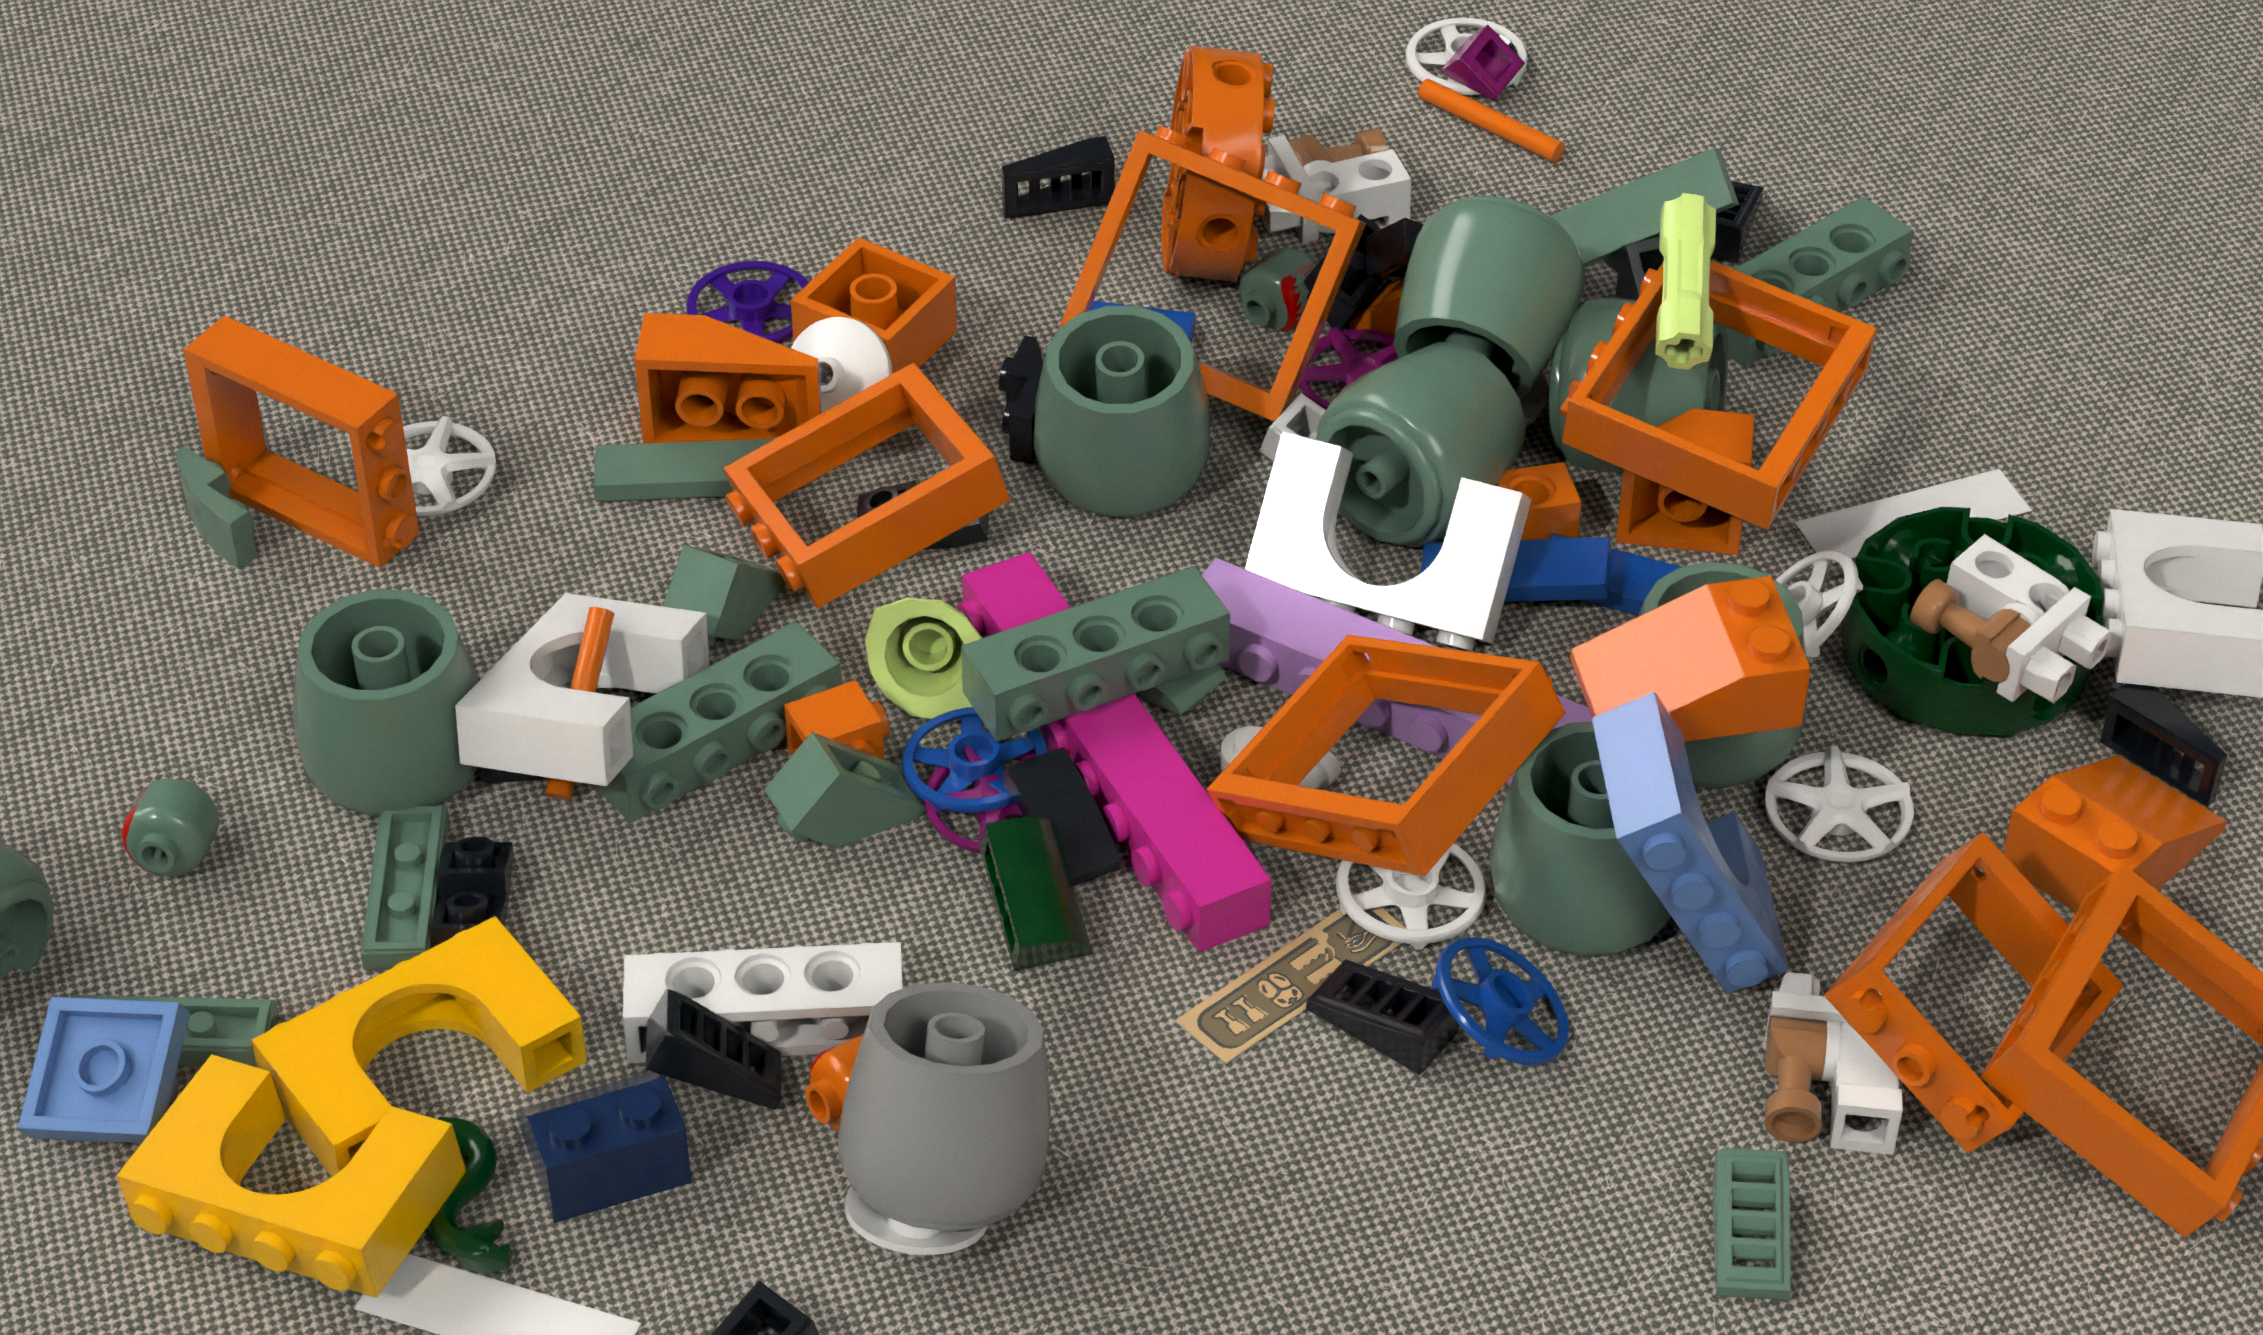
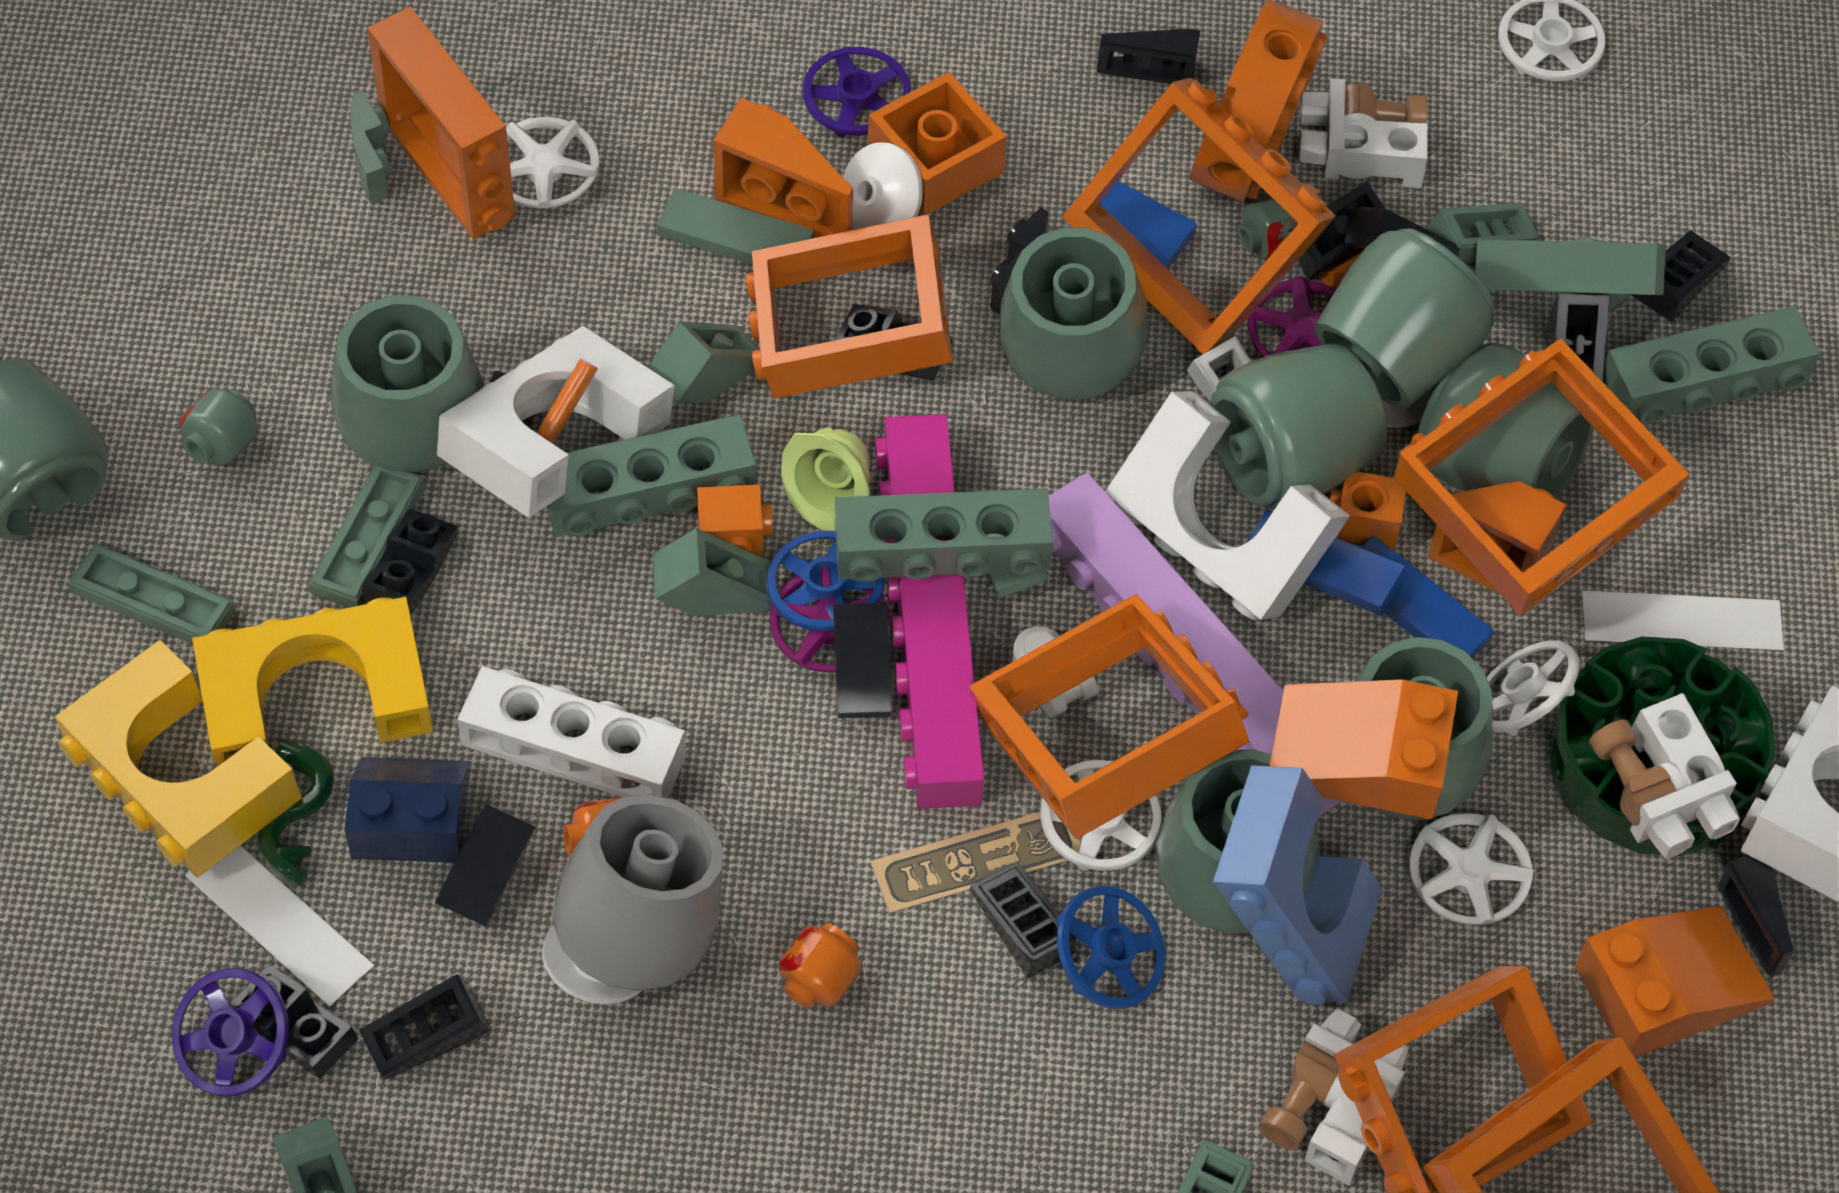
camera: 20 degrees right, 15 degrees up
(104, 1069) = (87, 620): medium blue hinge -> none
(710, 1052) = (489, 774): black slope -> none
(729, 1167) = (485, 865): none -> black slope
(1033, 892) = (809, 720): dark green brick -> none
(1183, 1129) = (820, 966): none -> orange head
(1484, 63) = (1556, 55): magenta slope -> none
(1491, 120) = (1538, 110): orange bar -> none
(1685, 316) = (1529, 411): yellowish green axle -> none

